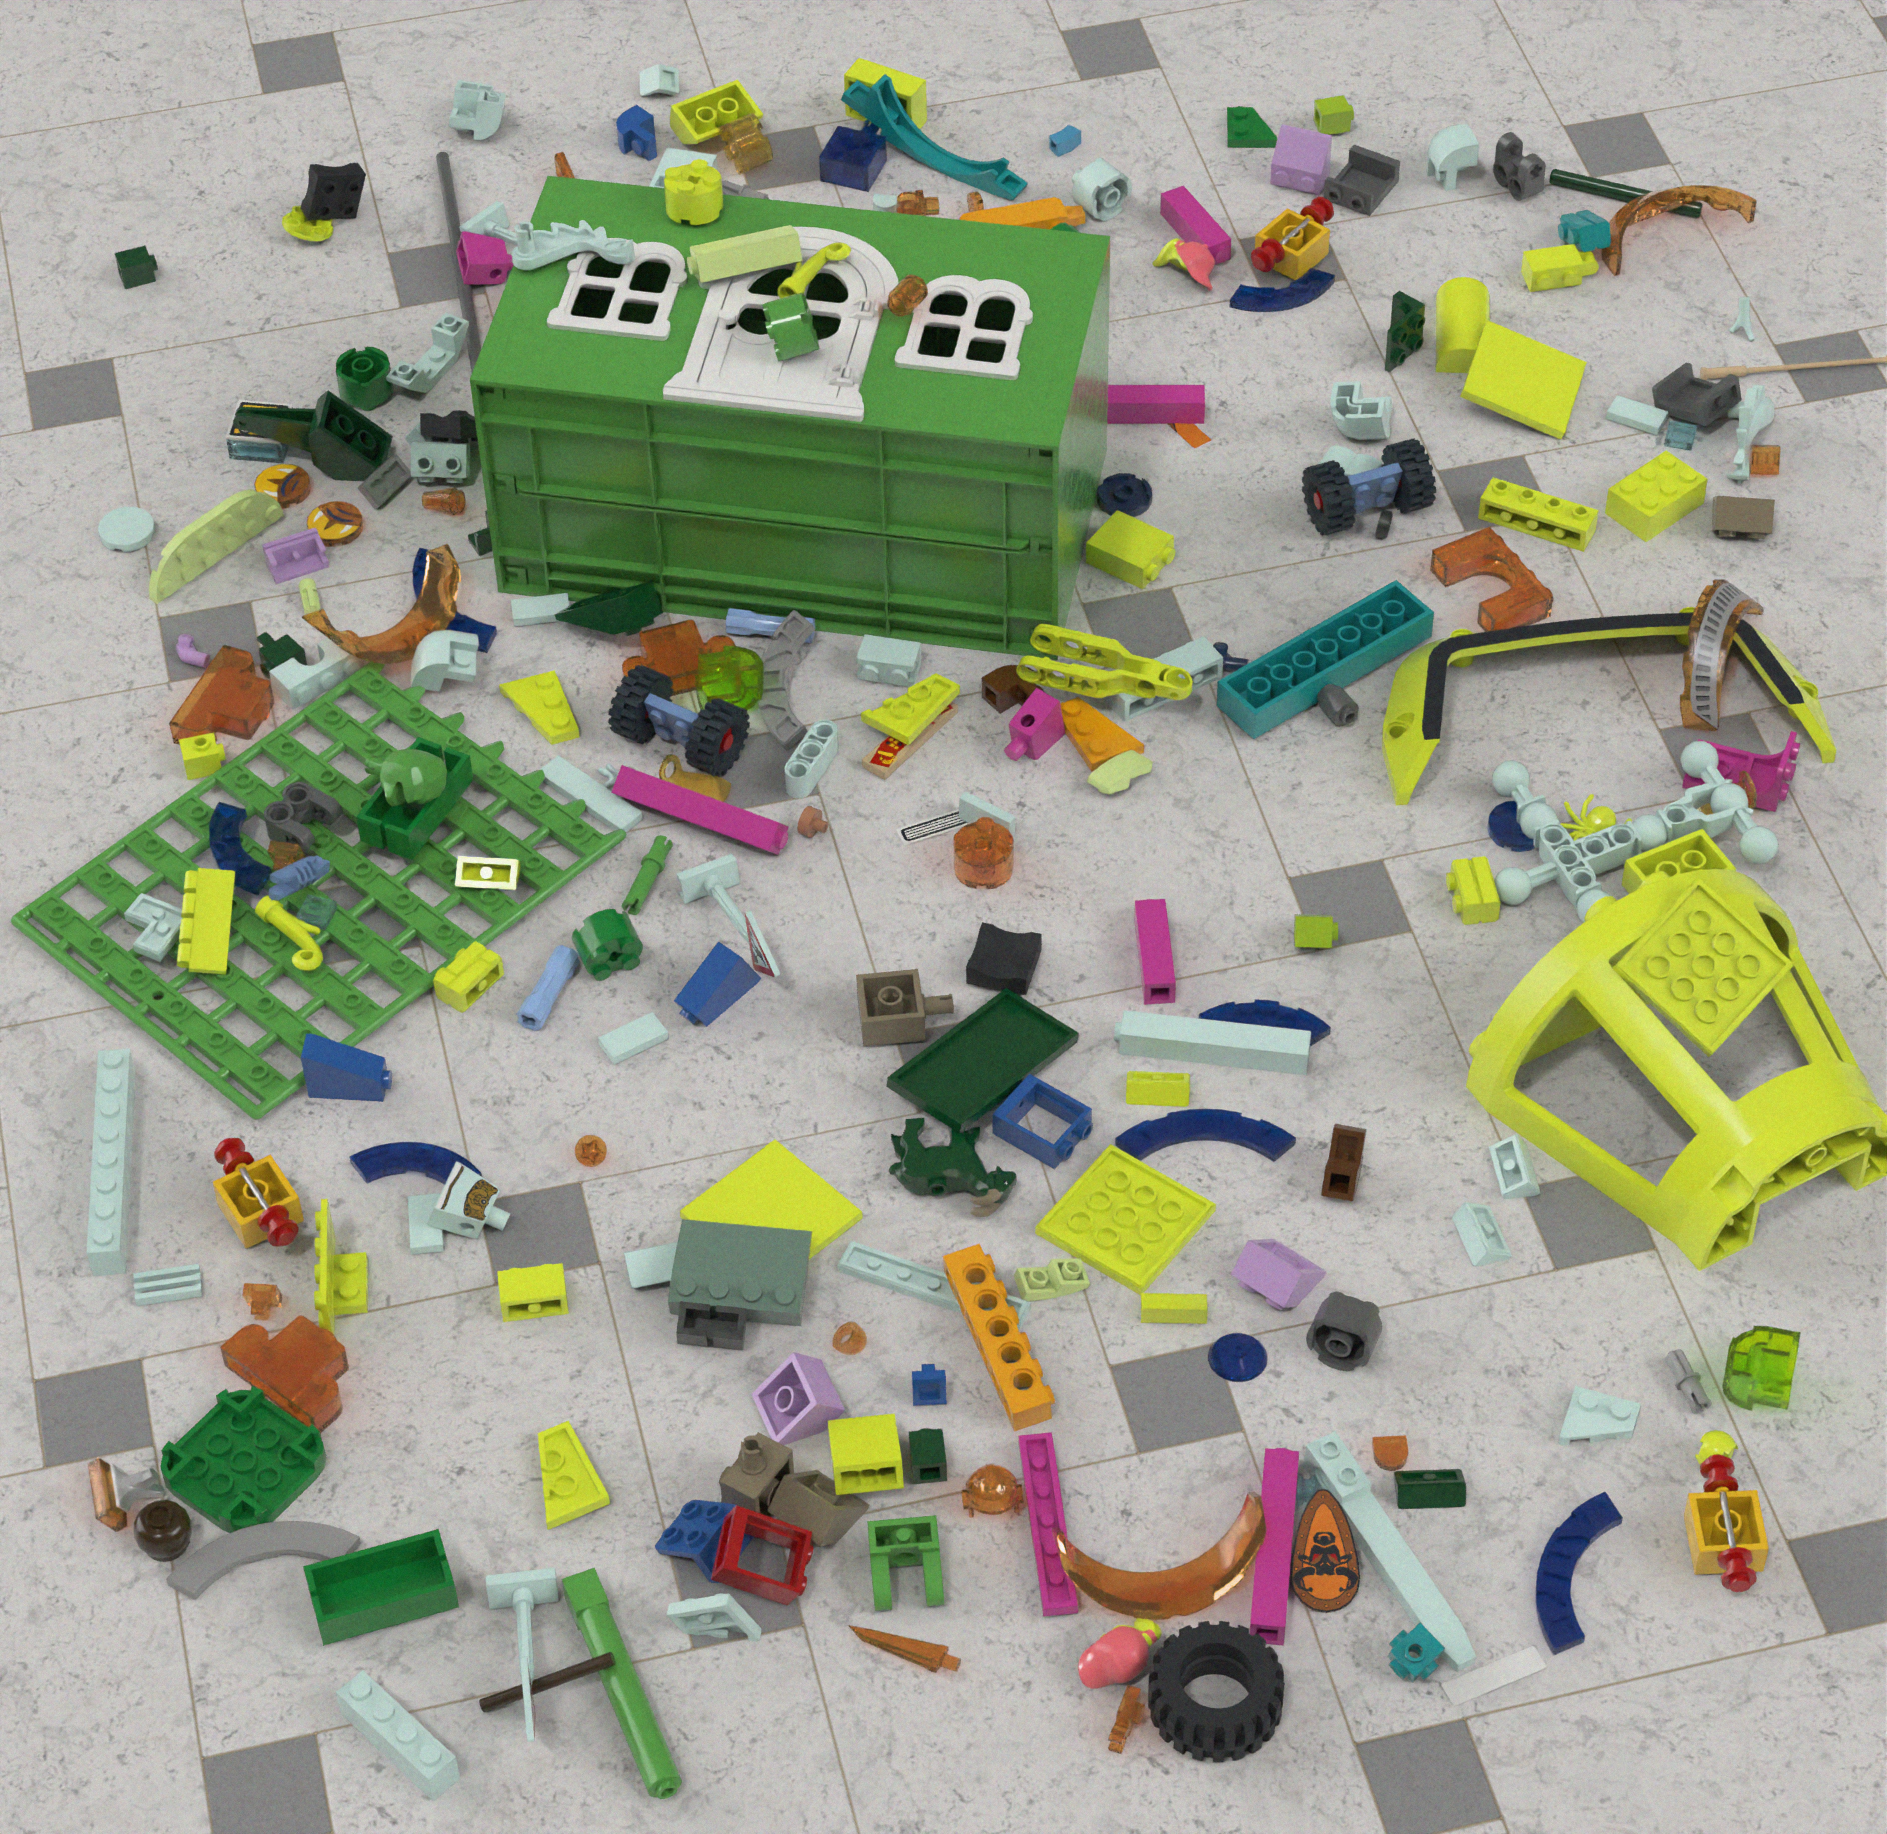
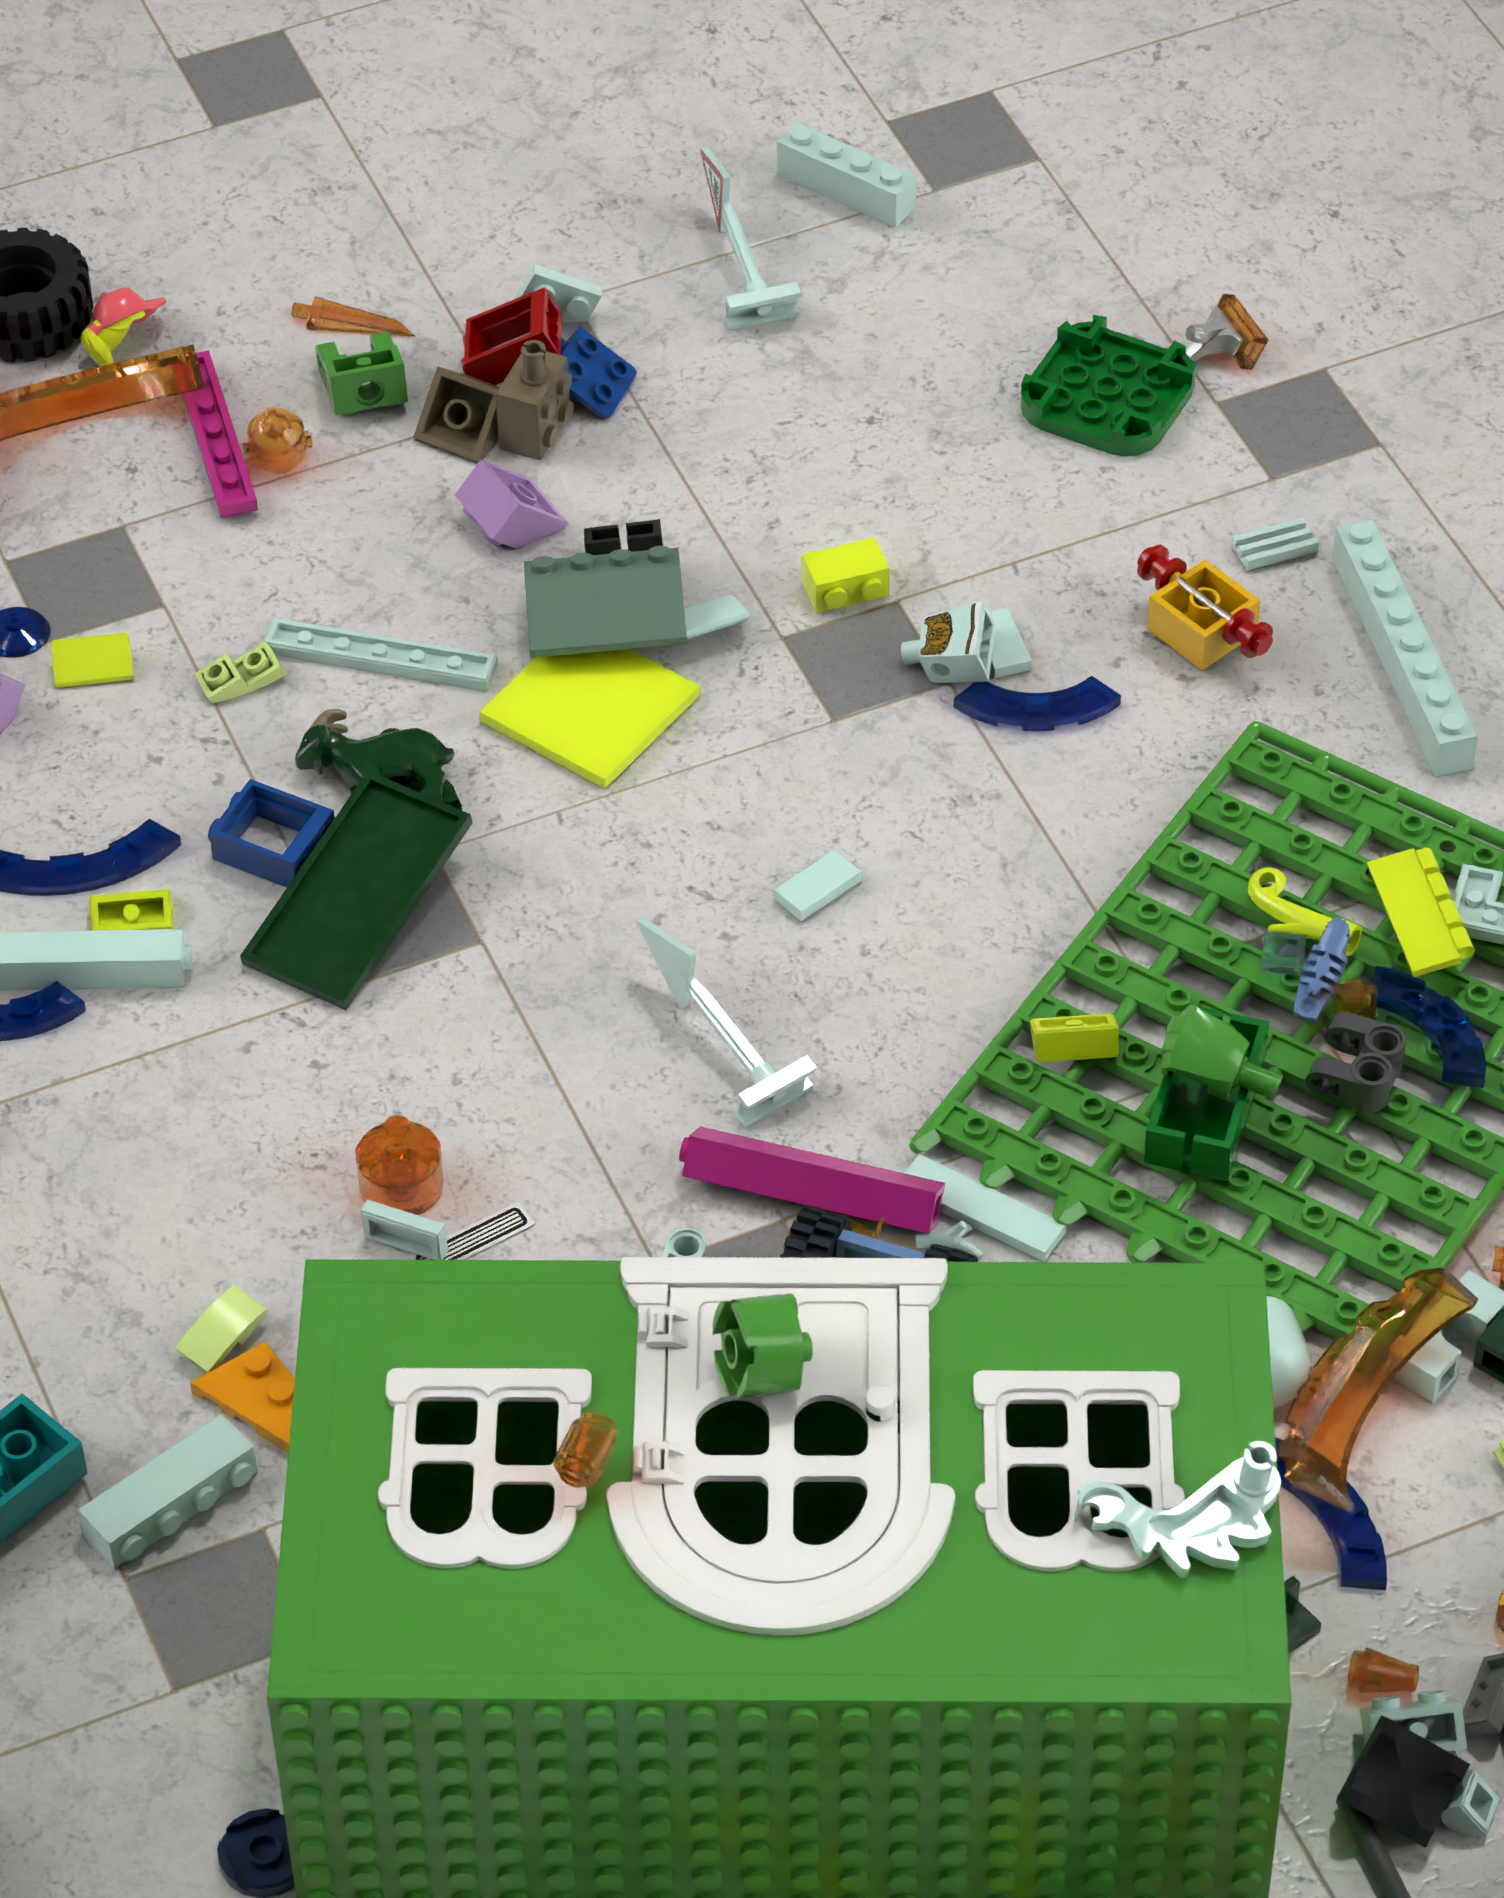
camera: 170 degrees right, 0 degrees up
(163, 1530) = (1160, 303): dark brown piece -> none
(259, 1543) = (1039, 328): light grey tile -> none
(261, 1299) = (1157, 528): clear orange tile -> none
(292, 1369) = (1090, 468): clear orange brick -> none
(339, 1276) = (1079, 565): neon yellow bracket -> none
(343, 1071) = (1162, 769): blue slope -> none
(381, 1587) = (908, 277): green piece -> none
(468, 976) = (1055, 919): neon yellow brick -> none
(538, 1004) = (941, 945): light blue axle -> none
(549, 1681) = (708, 226): dark brown bar -> none
(568, 1477) = (747, 412): neon yellow wing -> none
(590, 1150) = (828, 739): clear orange tile -> none
(607, 943) = (881, 964): green brick -> none
(631, 1706) = (687, 298): bright green brick -> none
(652, 865) = (860, 1106): bright green pin -> none
(693, 192) = (1007, 1636): neon yellow brick -> none
(716, 986) = (726, 937): blue slope -> none
(744, 254) = (879, 1503): yellowish green brick -> none
(806, 272) = (775, 1508): neon yellow plant -> none
(811, 822) = (652, 1193): nougat tile -> none
(856, 1341) = (461, 594): clear orange piece -> none
(865, 1454) = (421, 449): neon yellow brick -> none
(895, 1008) = (482, 937): dark tan brick -> none
(927, 1456) = (355, 472): dark green brick -> none
(929, 1386) = (365, 538): blue tile -> none
(1003, 959) = (350, 1030): black brick -> none
(1021, 1406) = (294, 590): light orange brick -> none
(1125, 1219) = (159, 754): neon yellow tile -> none
(1128, 1714) = (113, 272): clear orange plate -> none
(1130, 549) = (228, 1723): neon yellow brick -> none
(1133, 675) = (207, 1433): neon yellow piece -> none
(1154, 951) = (148, 1070): dark pink brick -> none
(1229, 663) = (76, 1550): dark blue arm -> none

